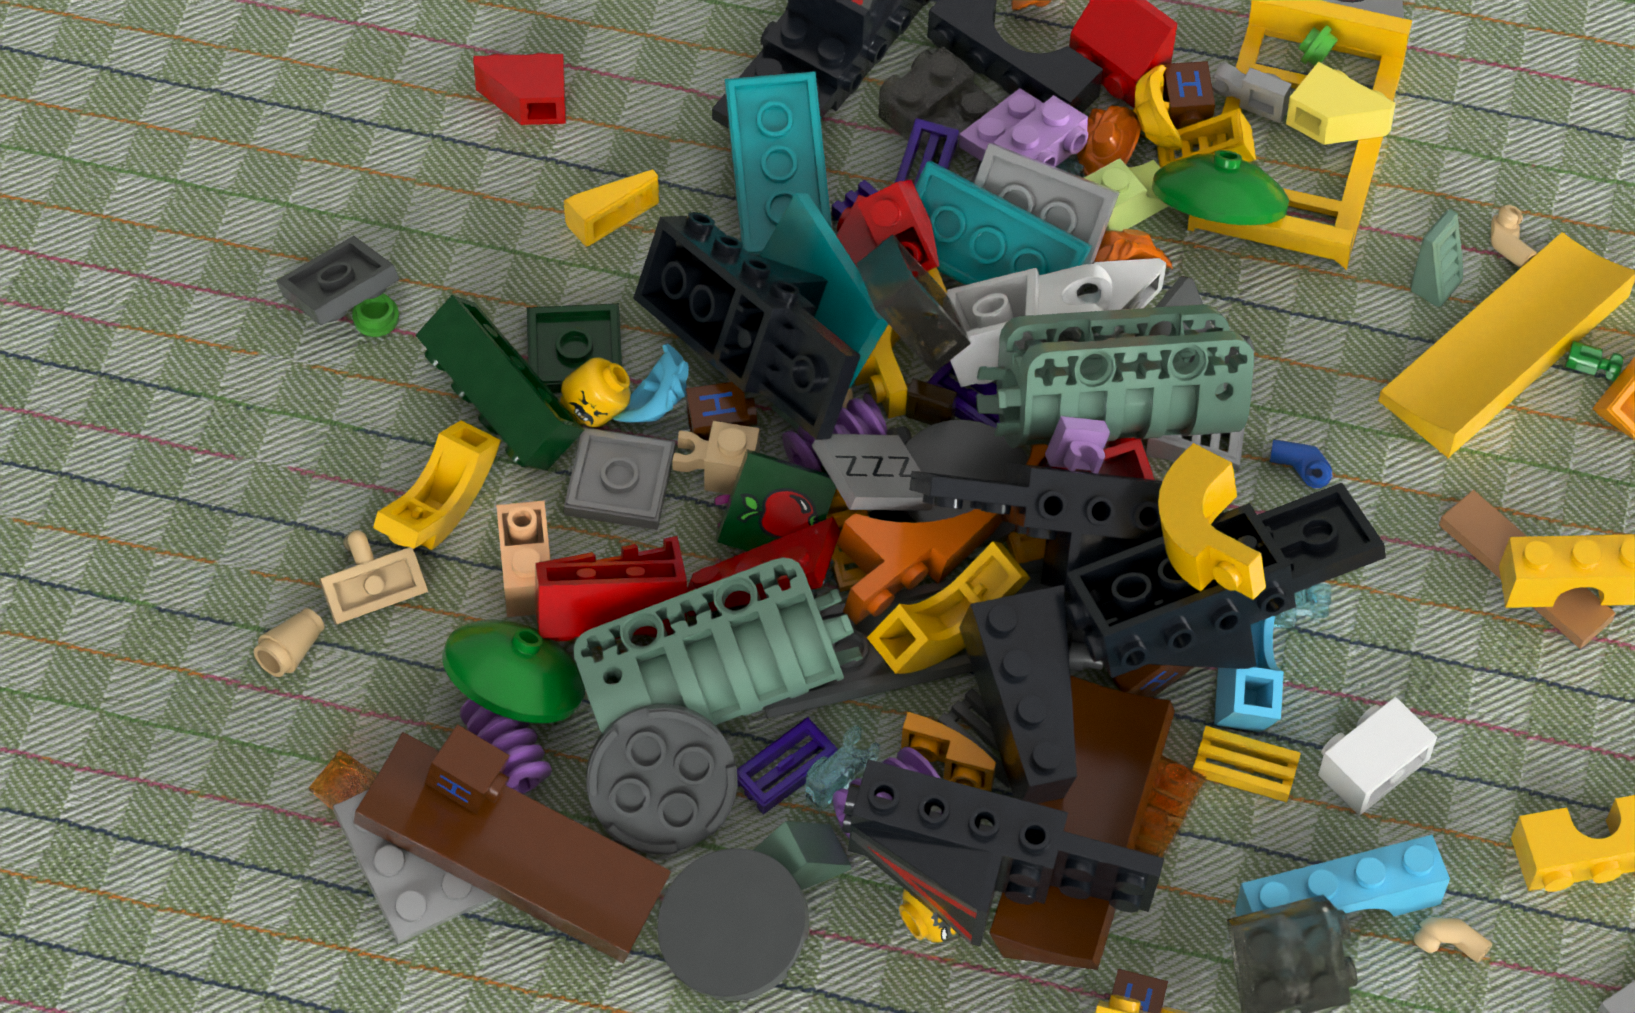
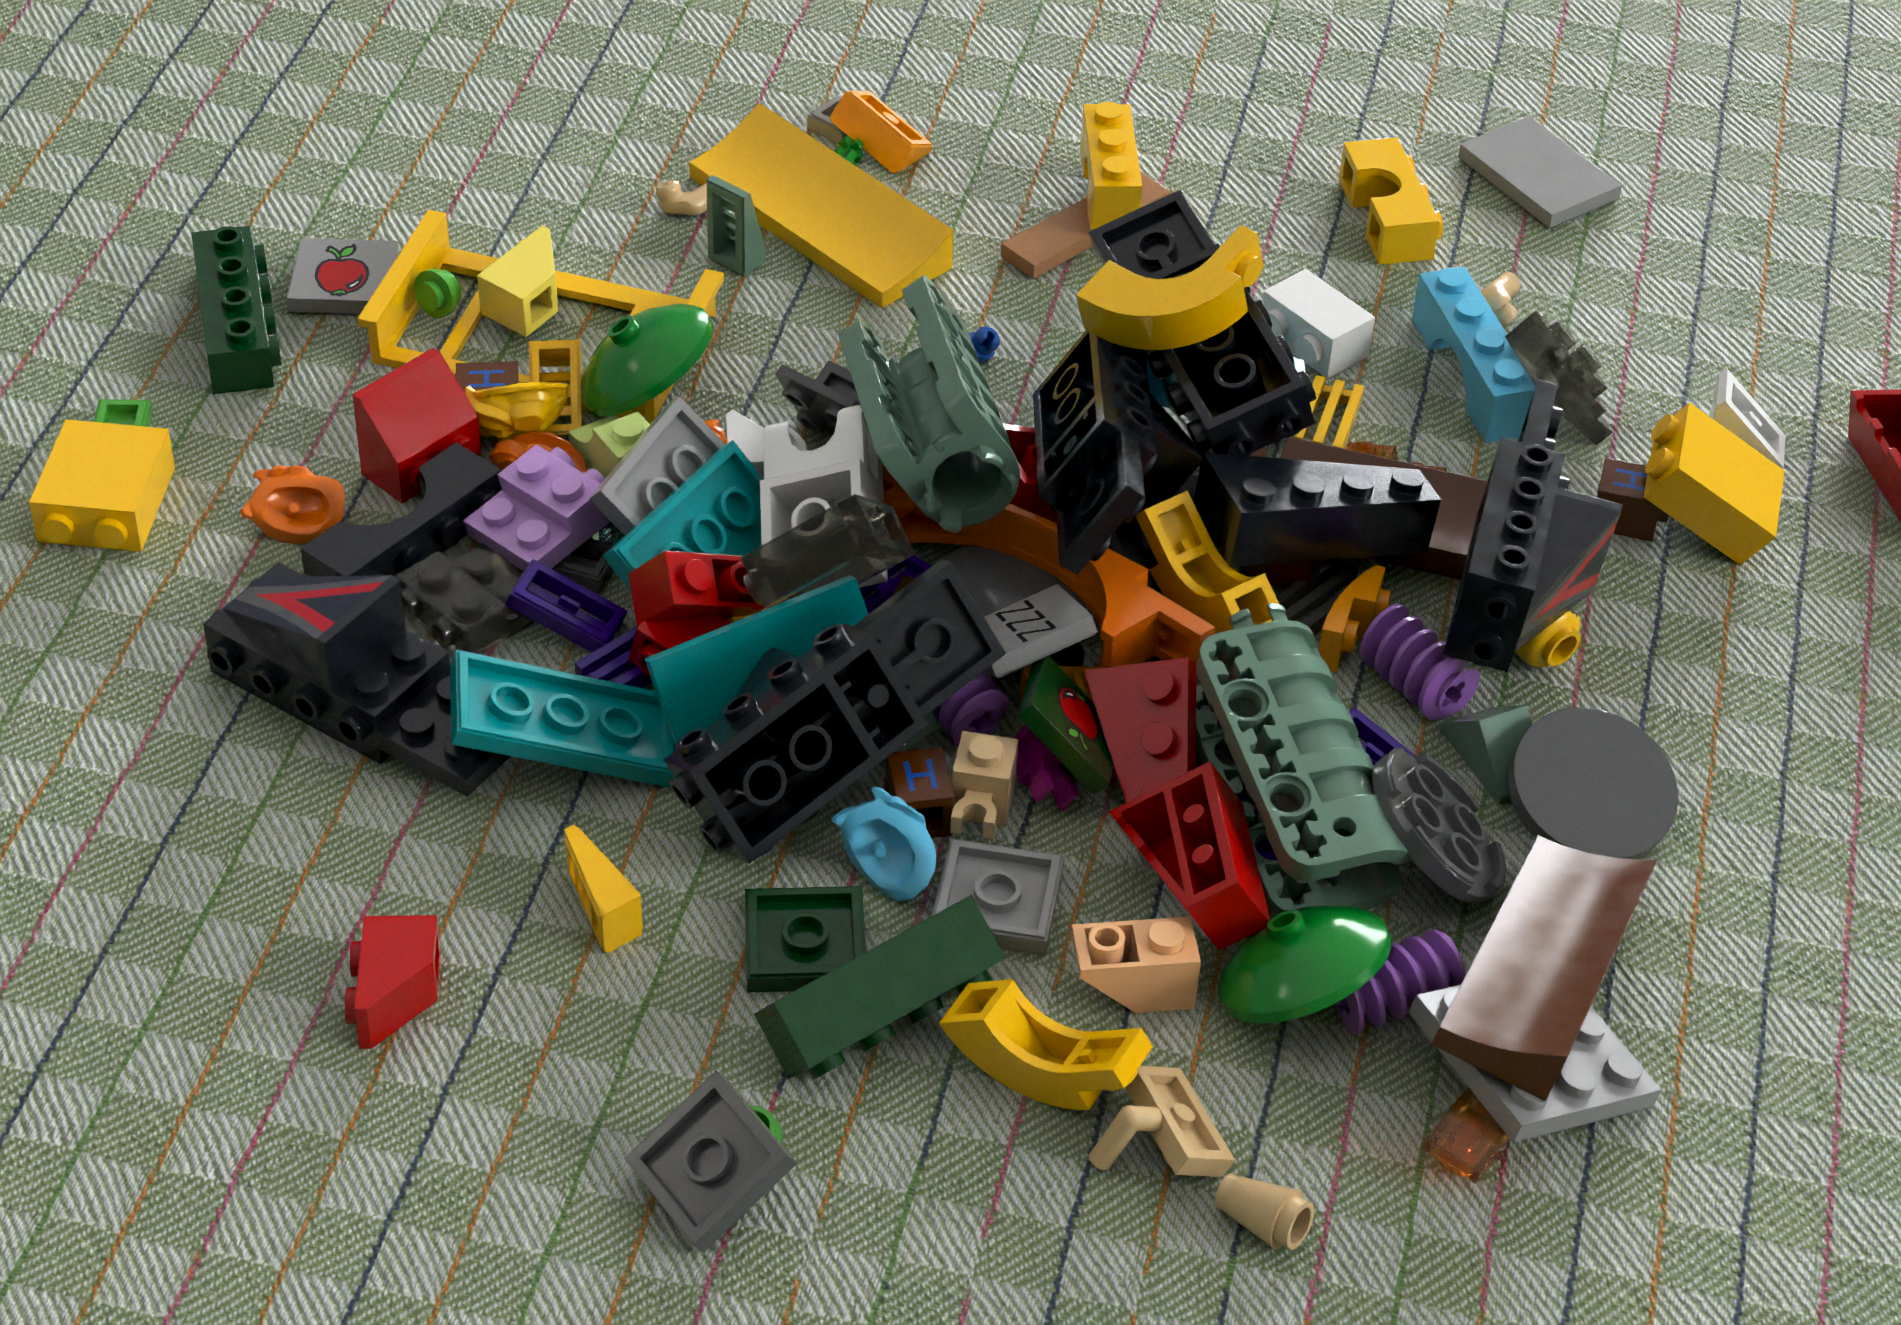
camera: 90 degrees left, 15 degrees down
(468, 770) = (1489, 956): reddish brown brick -> none
(596, 392) = (892, 894): yellow head -> none
(838, 771) = (1389, 702): clear light blue plate -> none
(1078, 444) = (1027, 434): lavender tile -> none
(1258, 91) = (497, 334): light grey plate -> none

